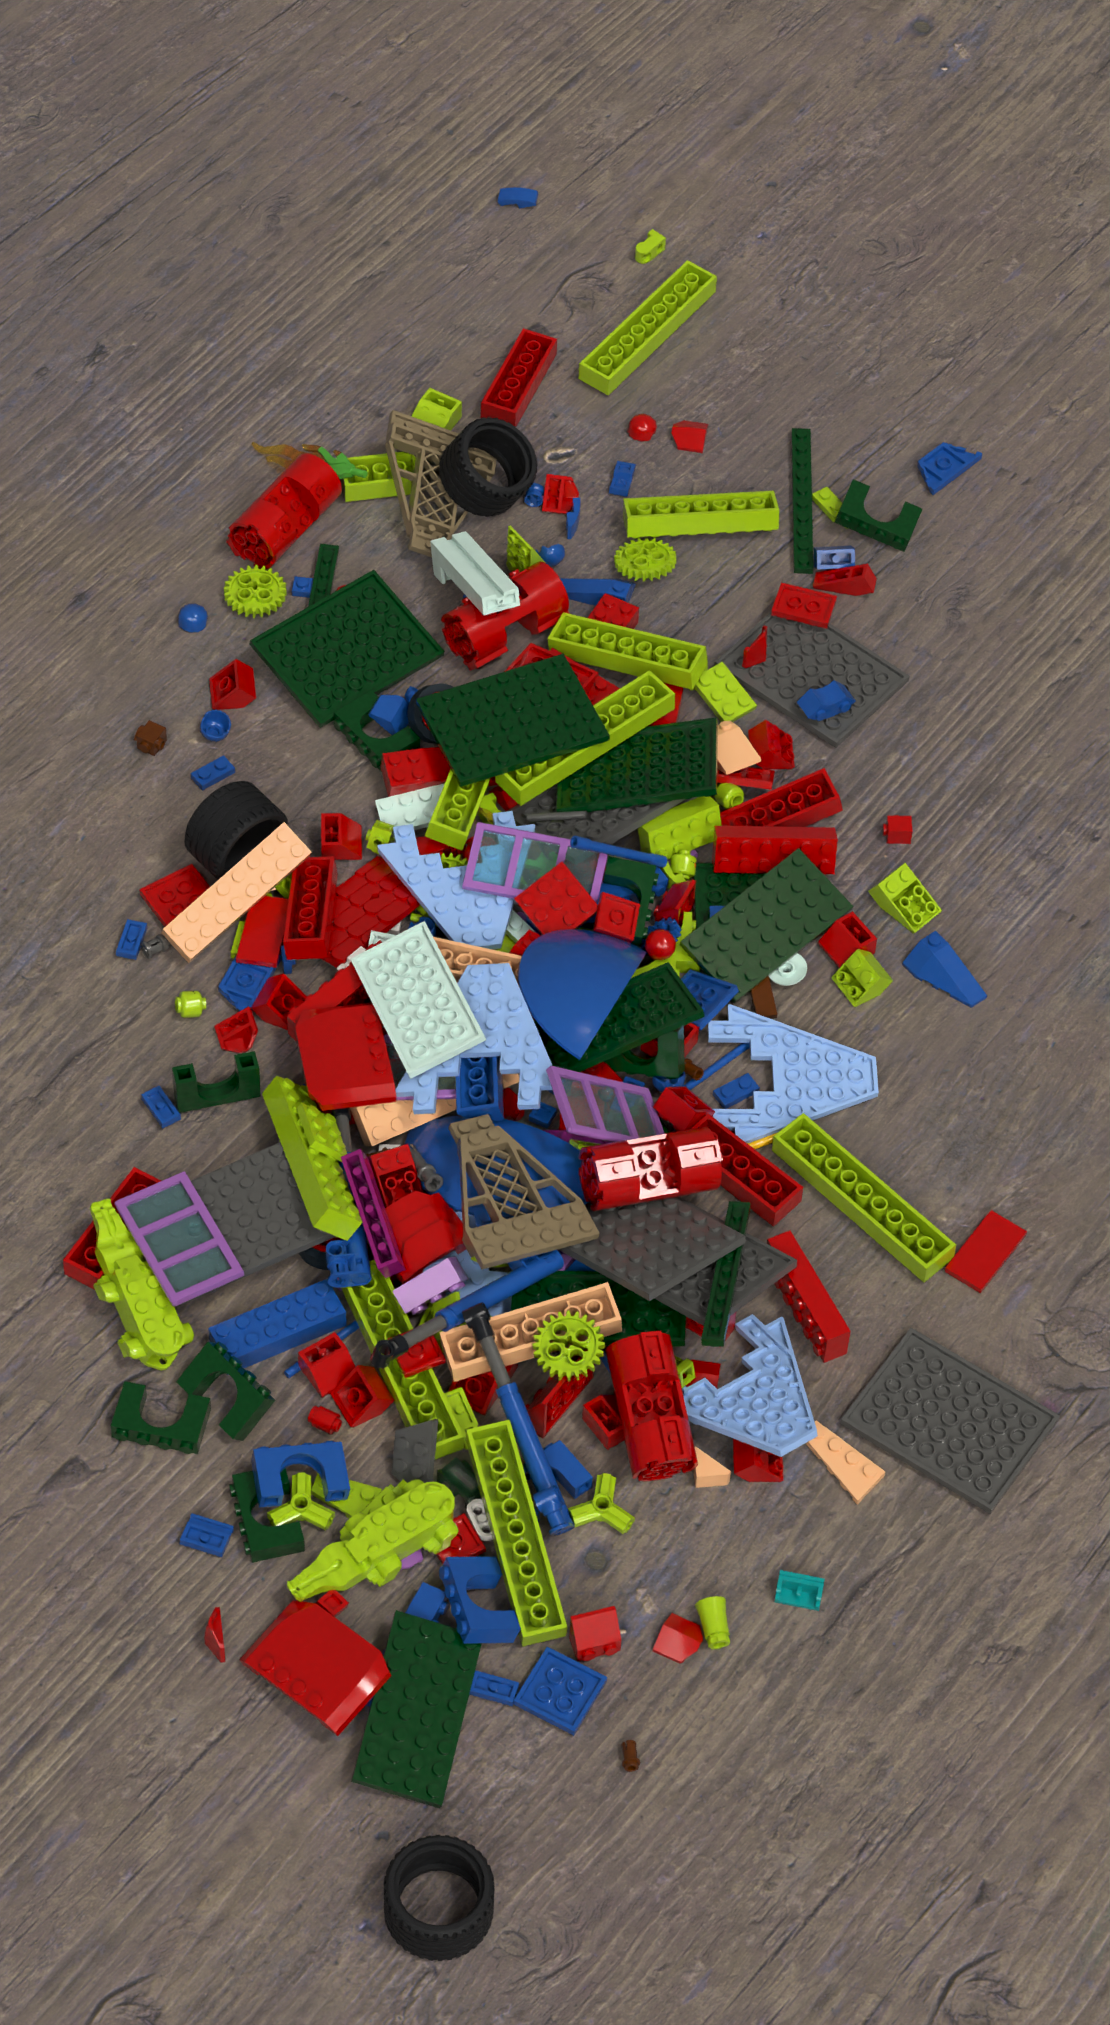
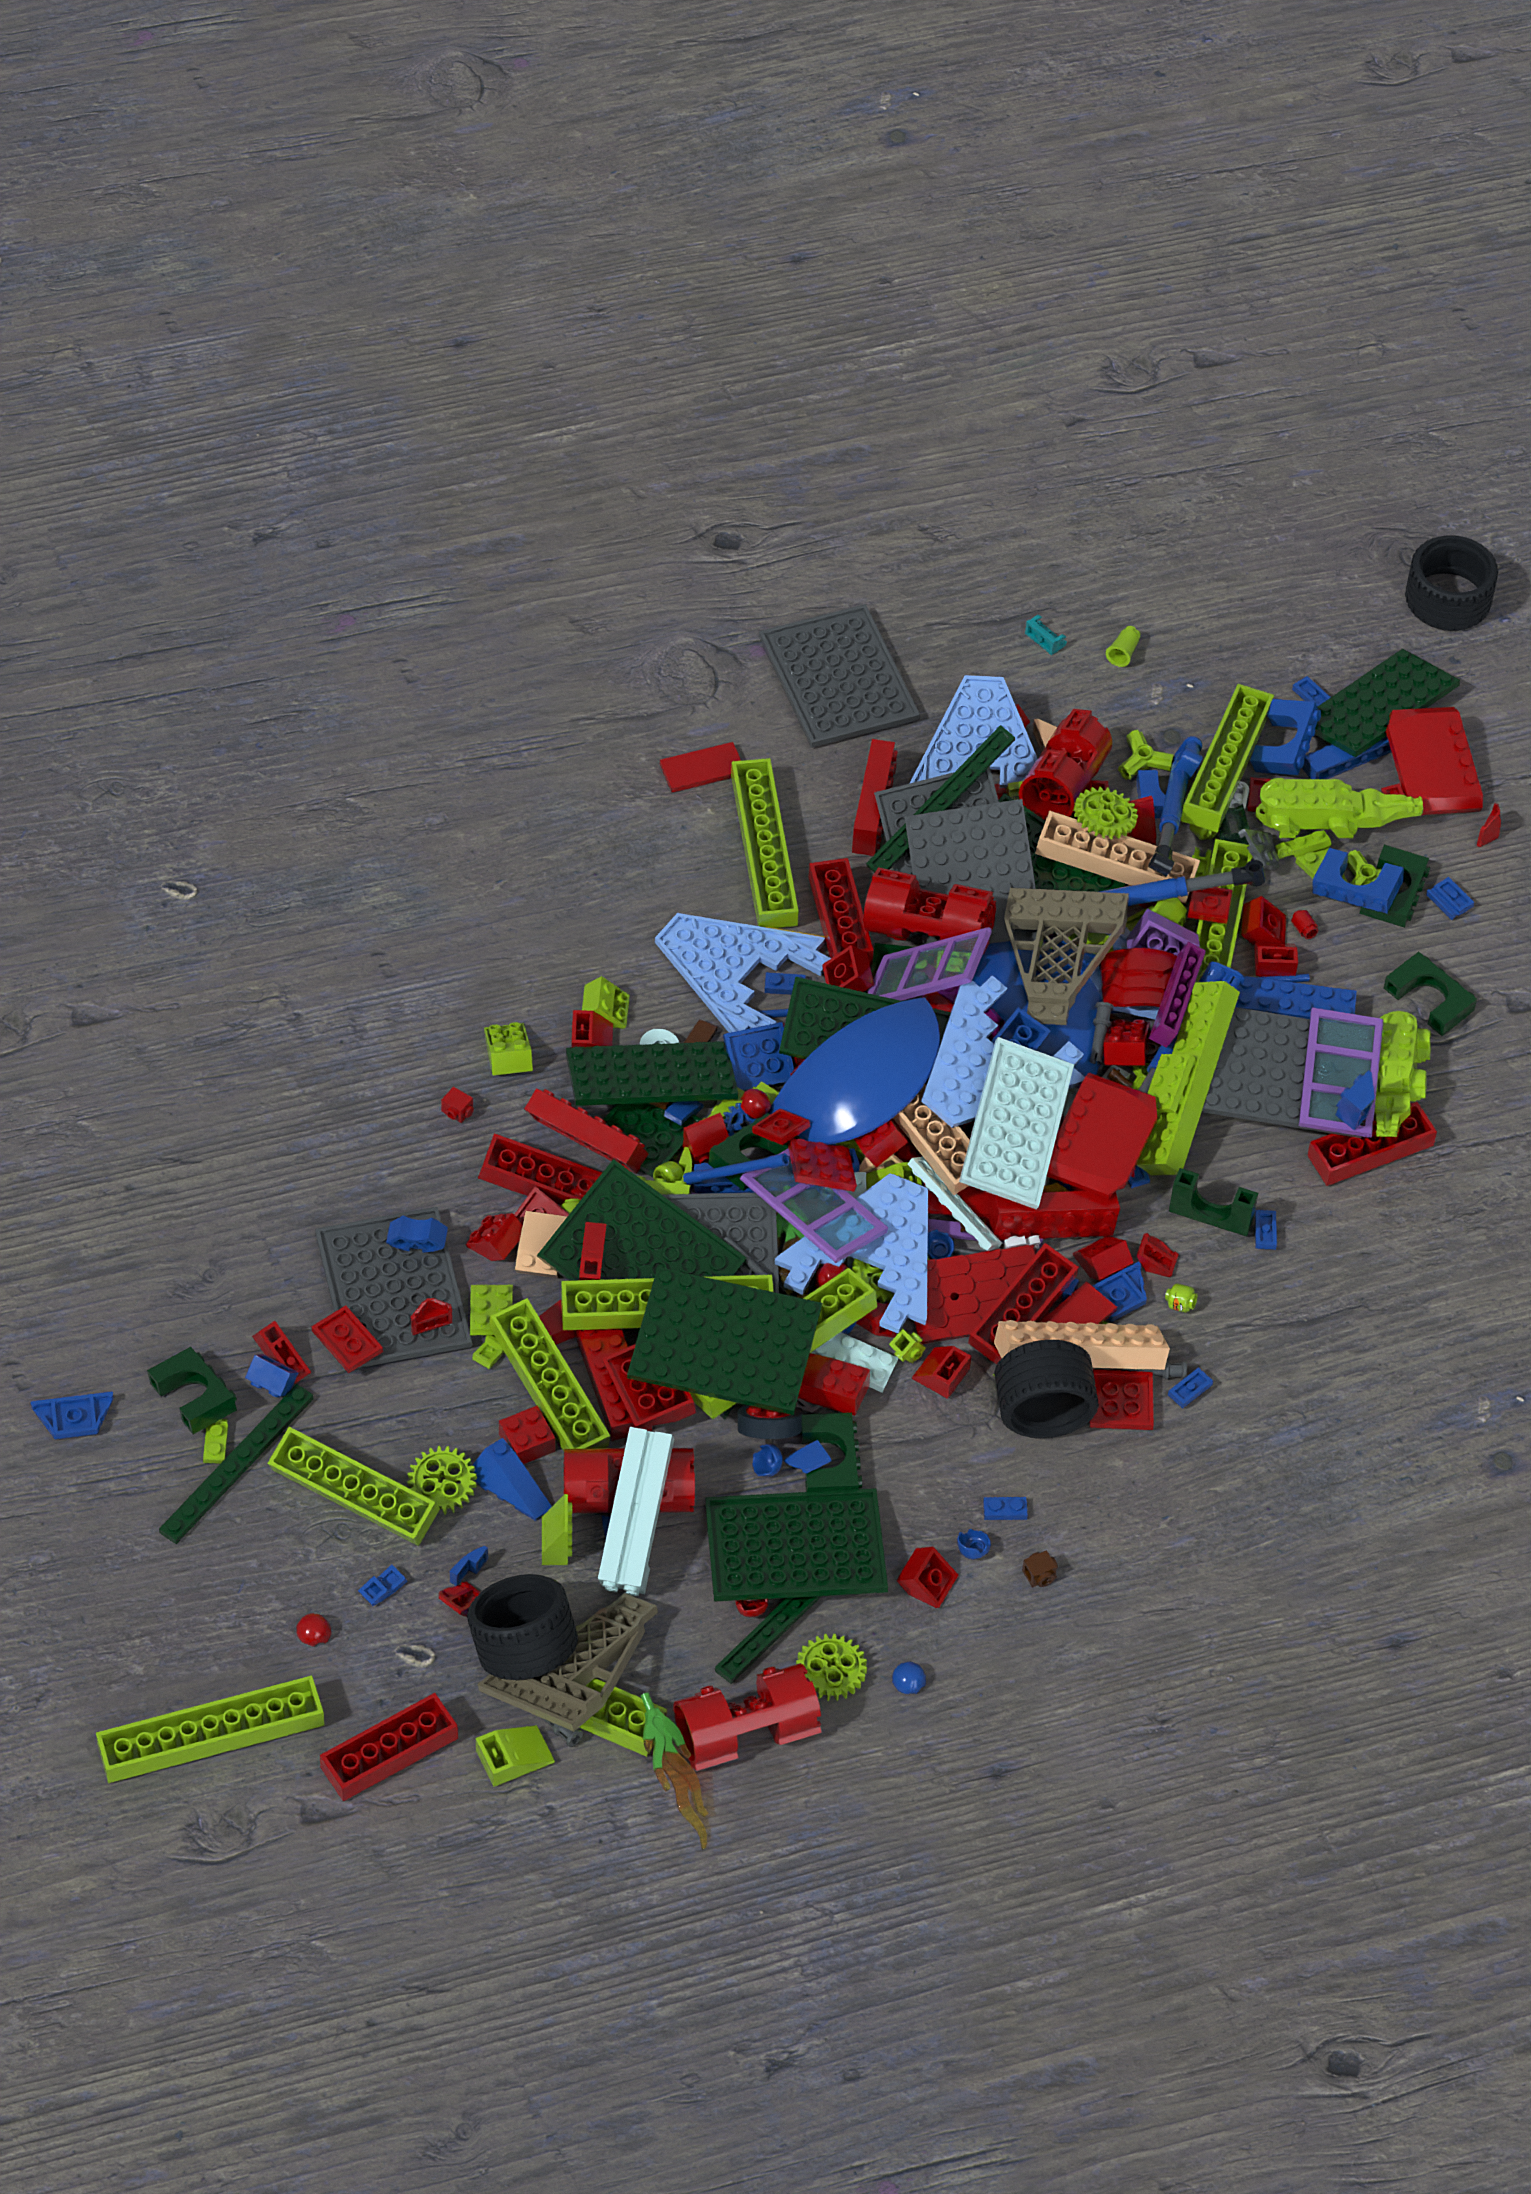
camera: 145 degrees left, 0 degrees up
(140, 1195) = (1356, 1101): none -> blue slope
(252, 1398) = (1368, 991): dark green arch -> none
(302, 587) = (779, 1651): blue plate -> none
(522, 196) = (190, 1988): blue slope -> none
(552, 555) = (525, 1536): blue hair -> none
(560, 1690) = (1266, 666): blue plate -> none
(595, 1634) = (1216, 681): red slope -> none
(630, 1762) = (1250, 604): reddish brown pin -> none
(650, 248) = (115, 1834): lime leg -> none
(670, 728) = (592, 1251): none -> red slope
(678, 1639) = (1153, 656): red slope -> none
(690, 435) = (273, 1595): red slope -> none
(850, 1467) = (938, 690): light nougat wing -> none
(940, 965) = (534, 980): blue wedge -> none

